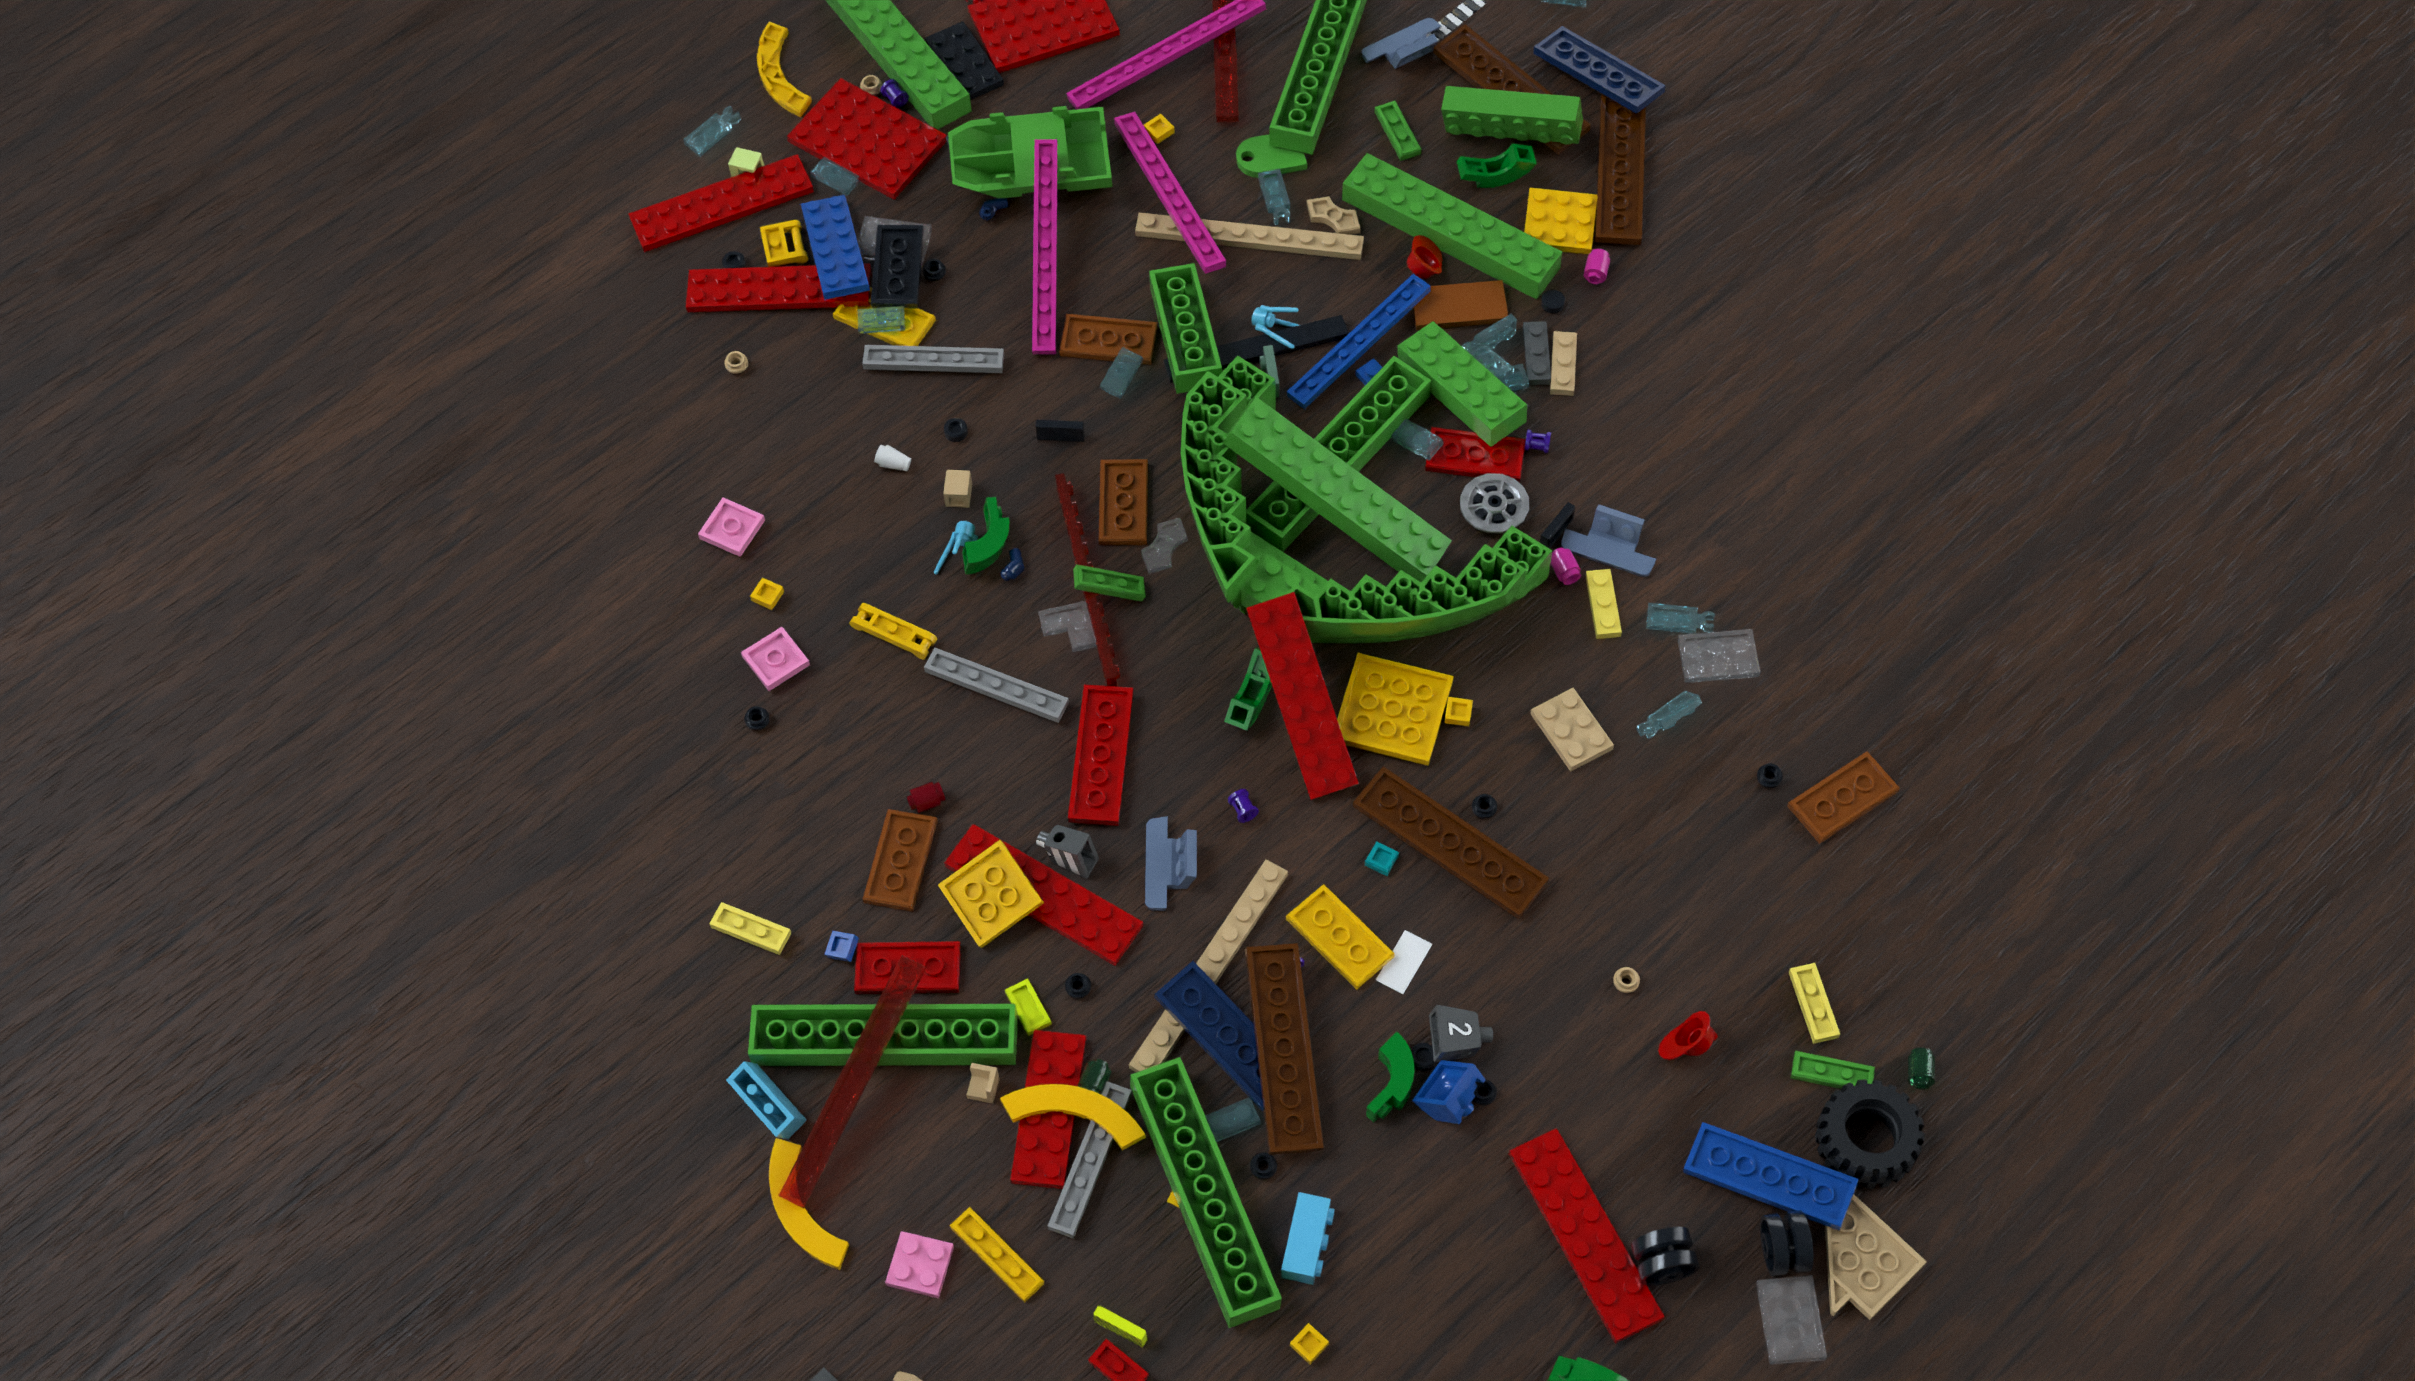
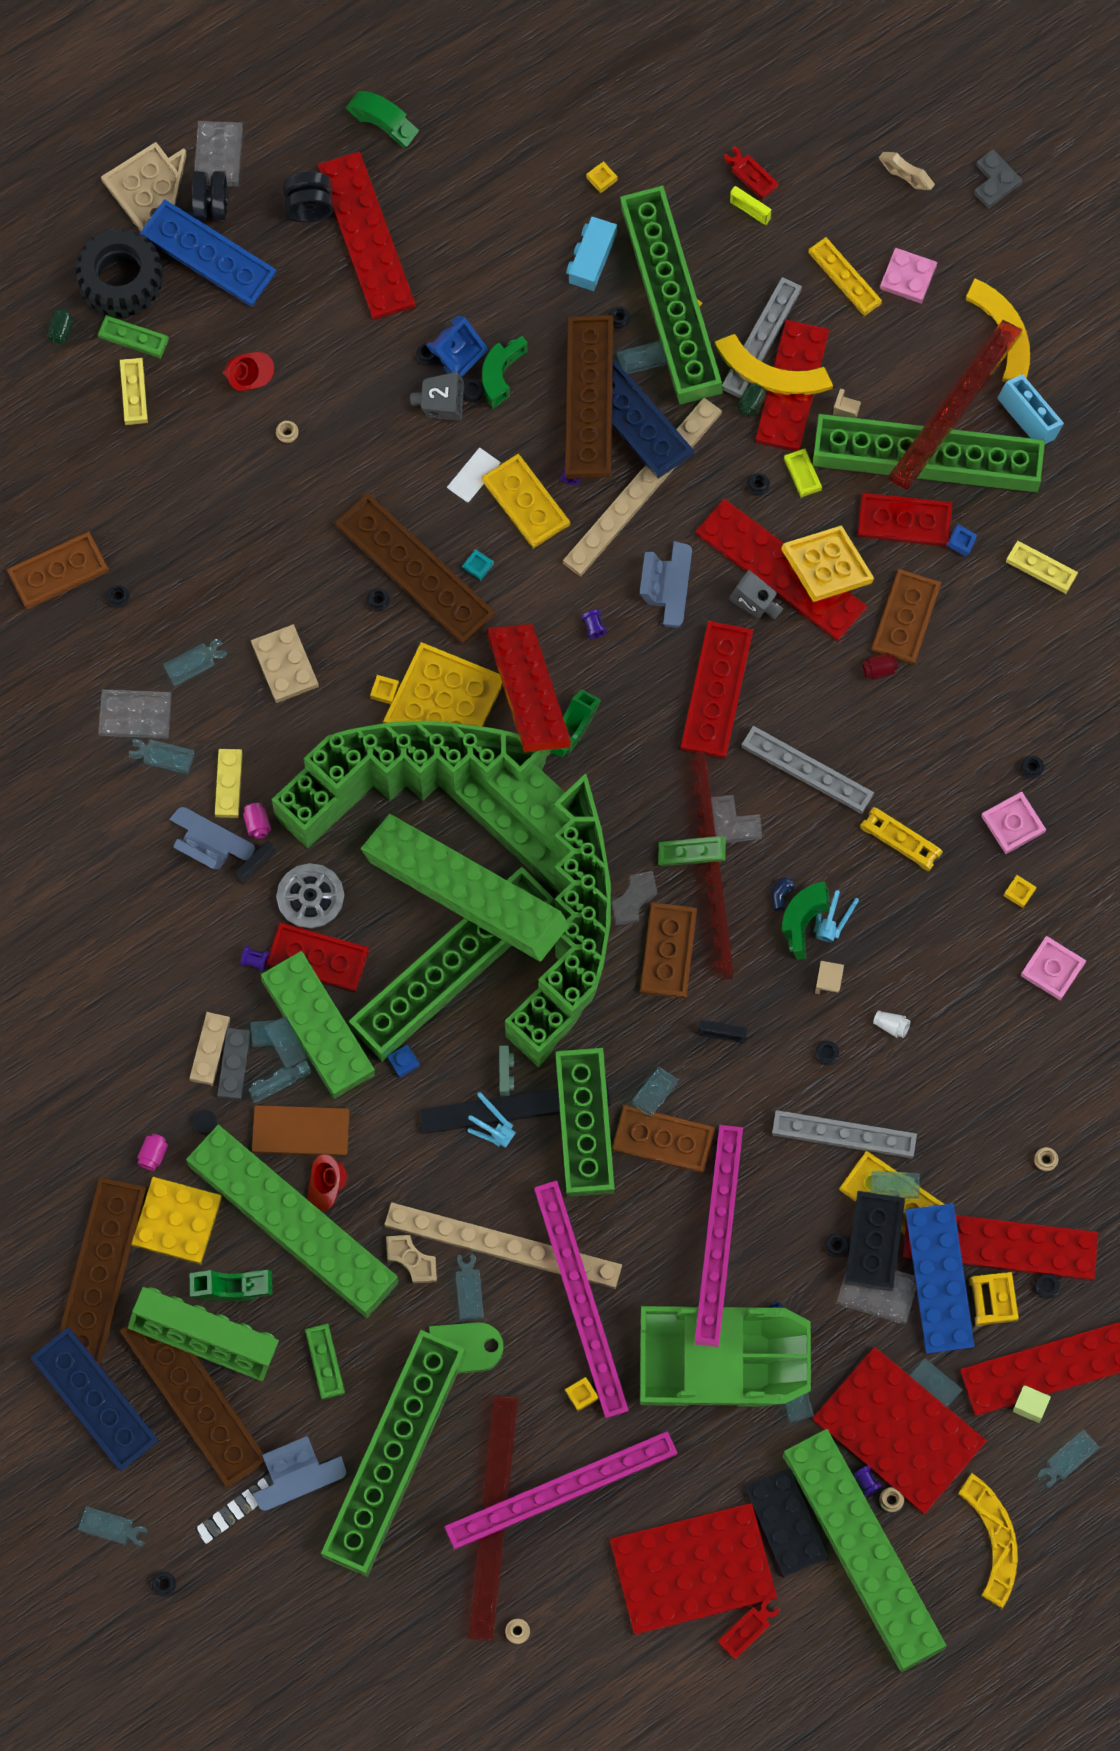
camera: 175 degrees left, 10 degrees up
(1358, 341) = (410, 1093): blue plate -> none
(1417, 439) = (370, 973): clear light blue plate -> none

